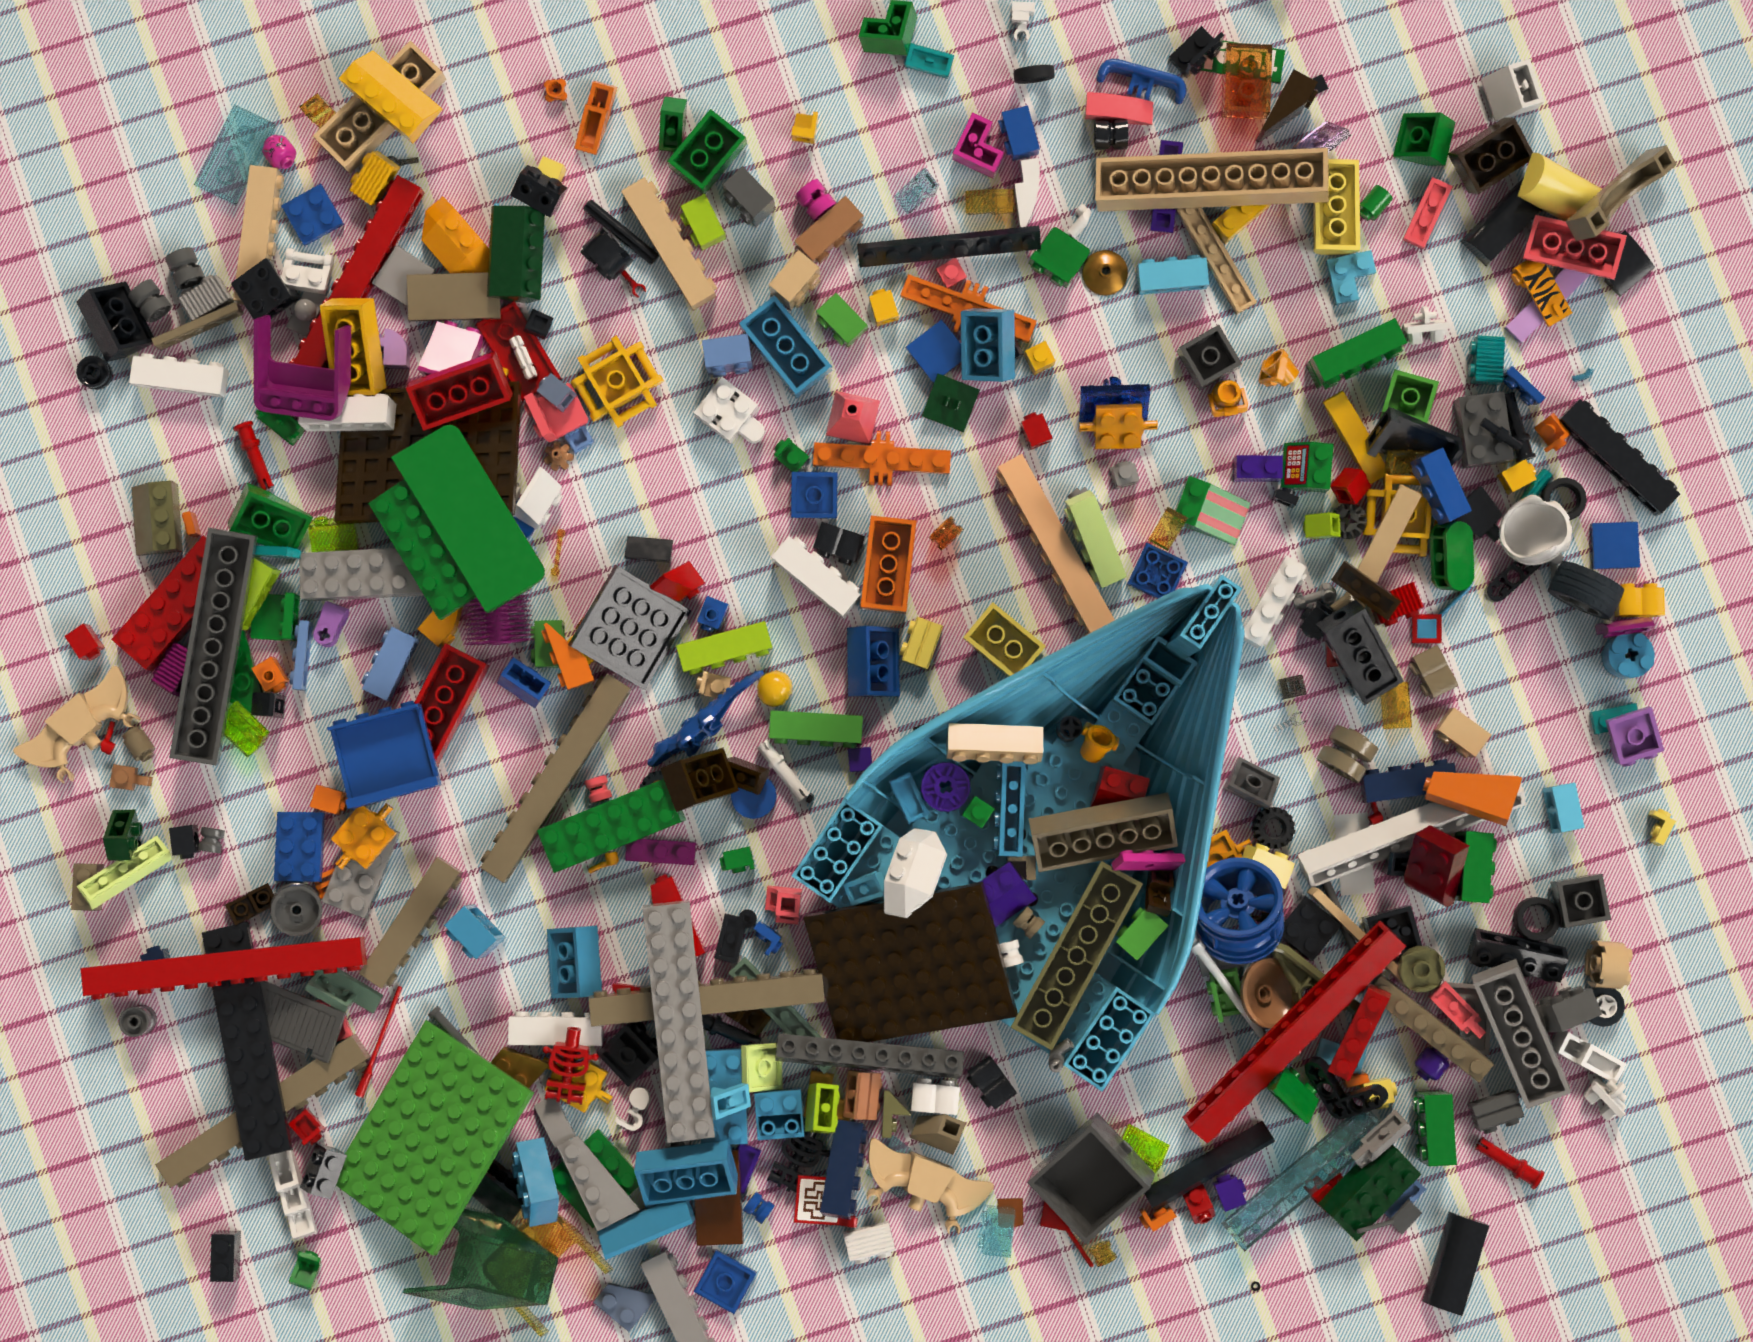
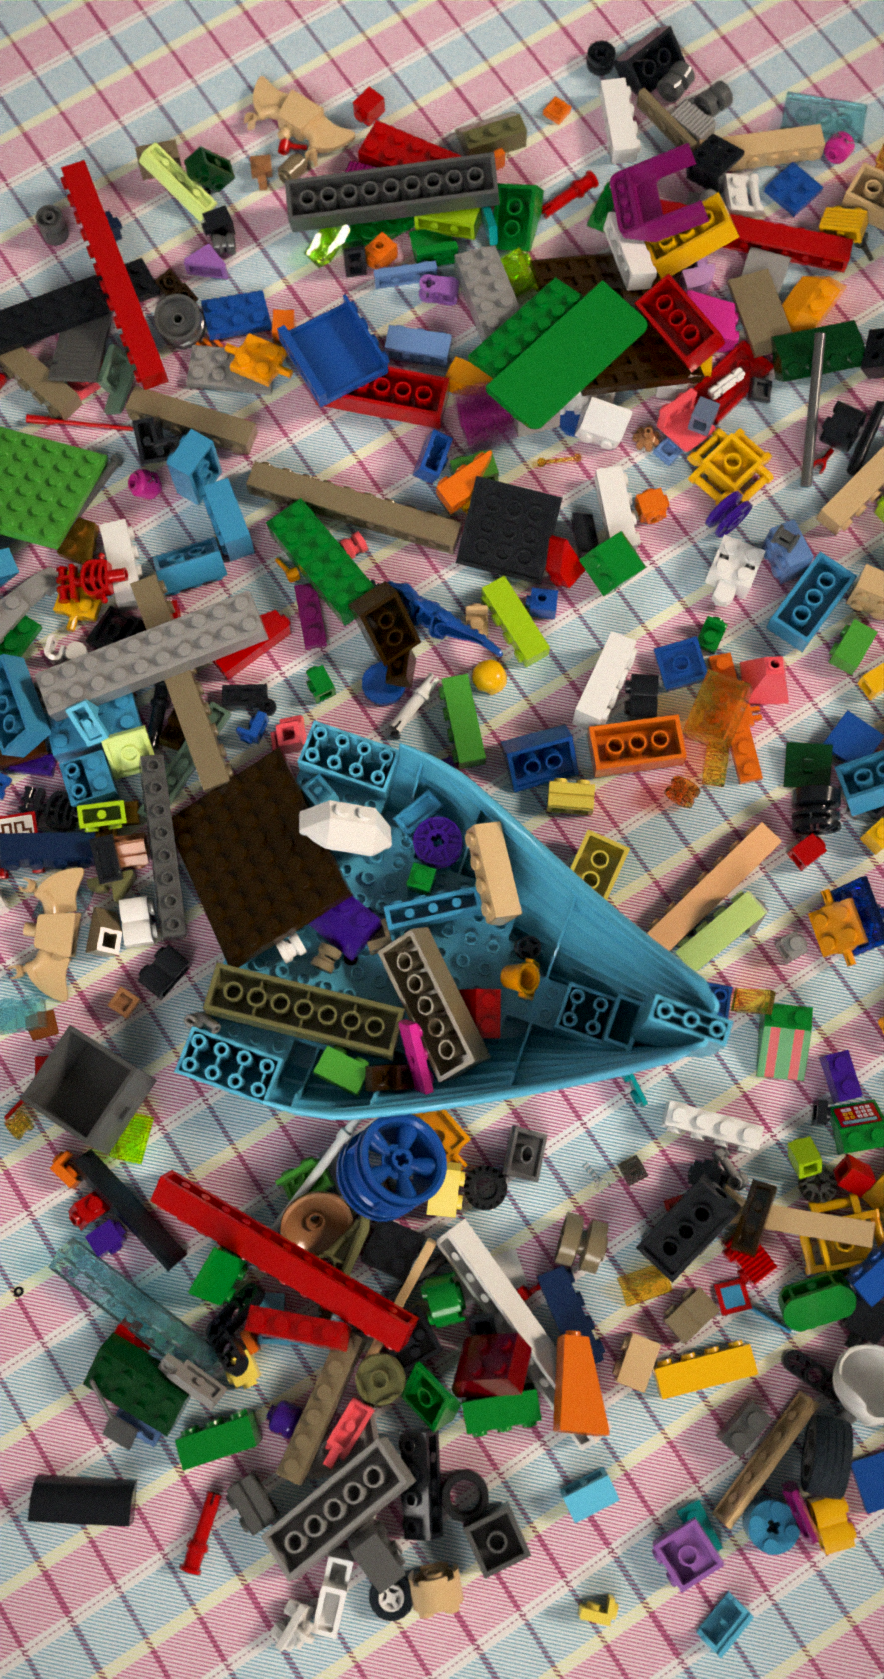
camera: 75 degrees right, 10 degrees down
(144, 438) = (557, 110): none -> orange tile
(229, 863) = (206, 263): none -> medium lavender slope
(434, 968) = (151, 441): none -> black brick
(472, 987) = (144, 484): none -> dark pink head
(539, 911) = (227, 520): none -> dark azure brick
(580, 279) = (813, 409): none -> dark grey piece
(633, 511) = (616, 504): none -> white brick
(637, 473) = (651, 506): none -> orange brick
(671, 400) = (728, 514): none -> dark purple wheel
(694, 533) = (612, 563): none -> green slope
(724, 357) = (785, 538): none -> dark grey bush
(869, 1113) = (106, 859): none -> black tile
(877, 475) = (717, 711): none -> clear yellow brick
(923, 491) = (714, 767): none -> clear yellow slope
(1000, 411) = (816, 809): none -> black wheel
(1012, 1127) = (124, 1002): none -> medium nougat tile
(1366, 892) = (444, 1300): none -> green brick
(1448, 928) = (430, 1398): none -> green slope
(1484, 674) = (704, 1370): none -> yellow brick
(1542, 654) = (743, 1427): none -> dark grey brick
(1572, 642) = (765, 1459): none -> tan tile
(1698, 720) = (724, 1624): none -> medium azure hinge

